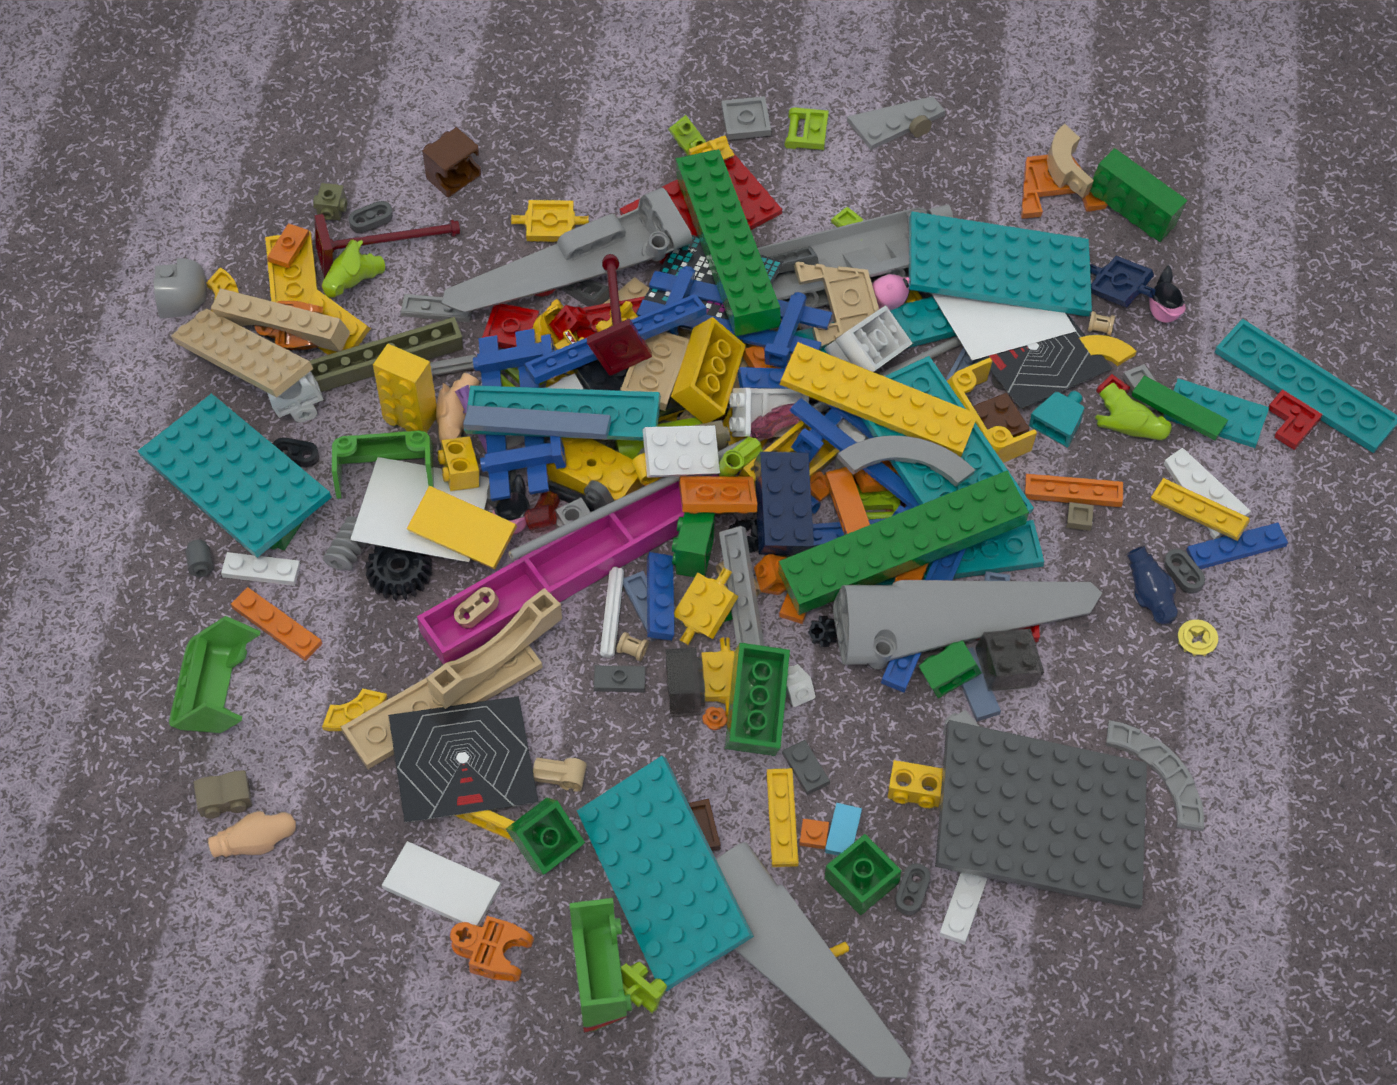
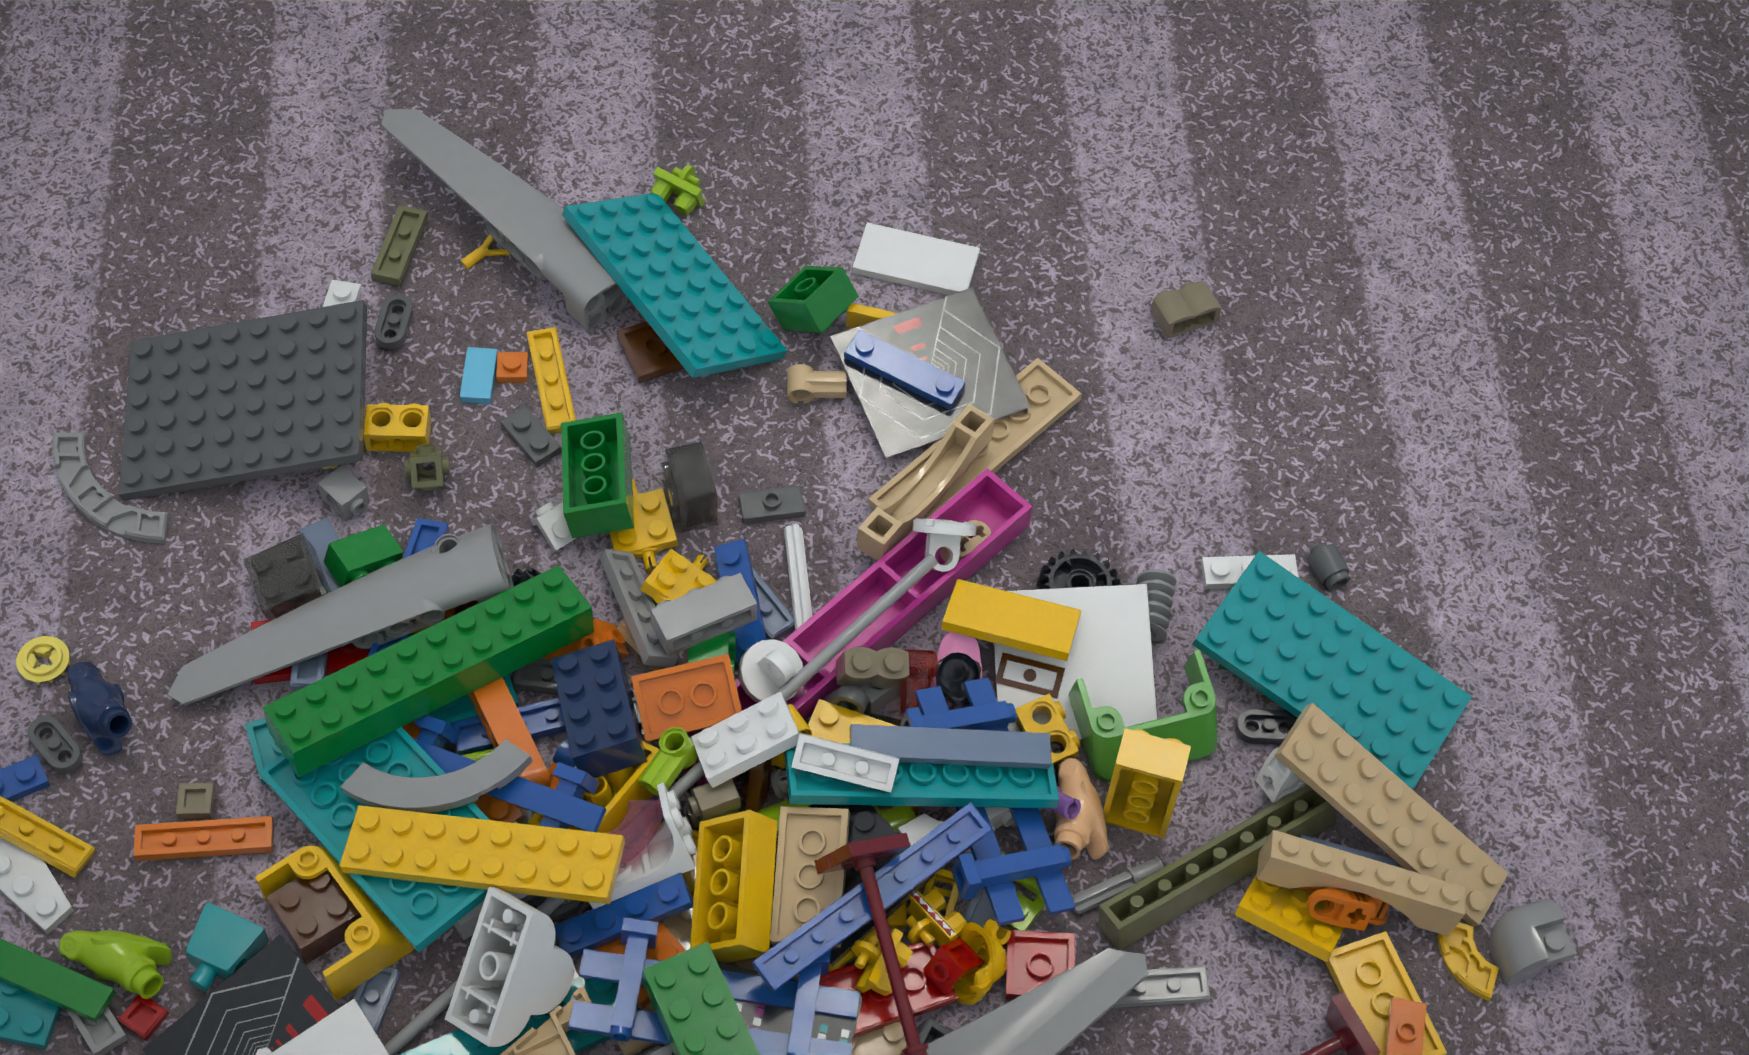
camera: 165 degrees right, 0 degrees up
(206, 677) = (1253, 409): bright green windscreen -> none
(252, 835) = (1137, 266): light nougat animal -> none
(276, 624) = (1204, 508): orange plate -> none
(341, 714) = (1080, 418): yellow tile -> none
(351, 269) = (1297, 1001): lime animal -> none
(484, 757) = (904, 369): none -> plate
(488, 945) = (859, 203): orange piece -> none
(494, 591) = (944, 534): none -> white tile
(572, 501) = (866, 666): none -> dark tan brick
(598, 963) = (728, 195): bright green windscreen -> none
(616, 405) = (845, 762): none -> white plate
(632, 646) = (763, 538): tan bush -> none
(650, 515) = (767, 668): none -> white tile
(694, 542) = (703, 613): none -> light grey brick
(715, 724) = (647, 480): orange plate -> none
(862, 874) = (451, 317): green brick -> none
(894, 739) = (426, 478): none -> olive brick
(902, 968) = (399, 245): none -> olive plate

